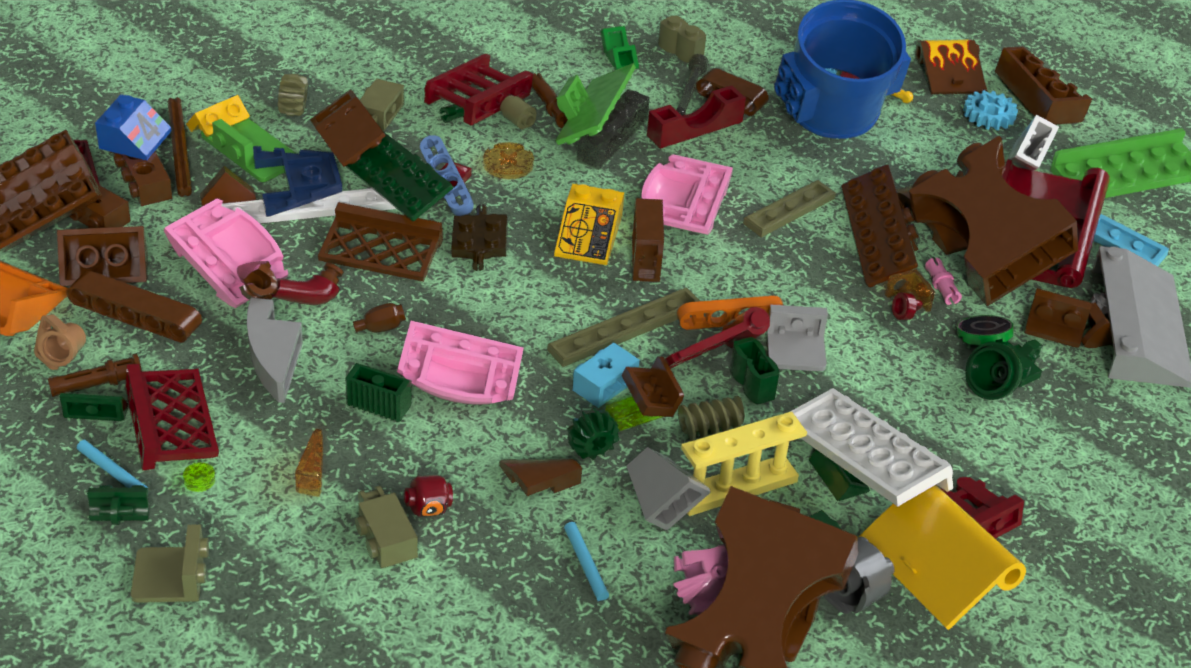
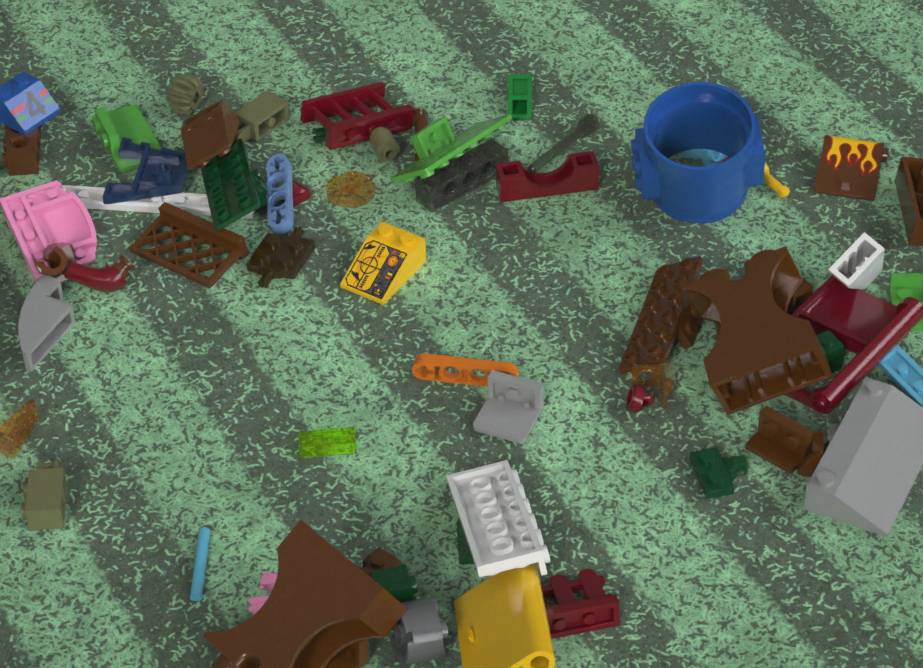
camera: 25 degrees right, 0 degrees up
(179, 147) = (68, 127): reddish brown axle -> none
(227, 188) = (85, 172): reddish brown slope -> none
(229, 110) = (115, 103): yellow bracket -> none
(378, 392) = (103, 378): dark green brick -> none
(381, 318) = (149, 314): reddish brown plant -> none
(428, 495) = (96, 477): dark red head -> none
(459, 365) = (188, 369): bright pink slope -> none
(541, 474) = (201, 479): reddish brown slope -> none
(593, 434) = (264, 454): dark green gear -> none
(601, 376) = (313, 404): medium azure brick -> none
(619, 328) = (356, 365): olive tile -> none
(647, 240) = (421, 286): reddish brown window -> none
(654, 389) = (340, 426): reddish brown bracket -> none
(664, 488) = (295, 502): light grey slope -> none
(681, 38) = (584, 95): olive brick -> none
(689, 192) = (491, 250): bright pink slope -> none
(711, 416) = (381, 464): olive piece -> none
(716, 79) = (613, 163): reddish brown beam -> none
(748, 324) = (455, 389): dark red piece -> none
(748, 439) = (376, 527): light yellow fence -> none
(754, 370) = (446, 428): dark green brick -> none
(789, 208) = (590, 282): olive tile -> none
(943, 281) = (694, 381): bright pink pin -> none
(984, 329) = (700, 435): tile -> none
(984, 367) = (677, 477): dark green piece -> none
(990, 110) = (858, 217): medium azure gear -> none

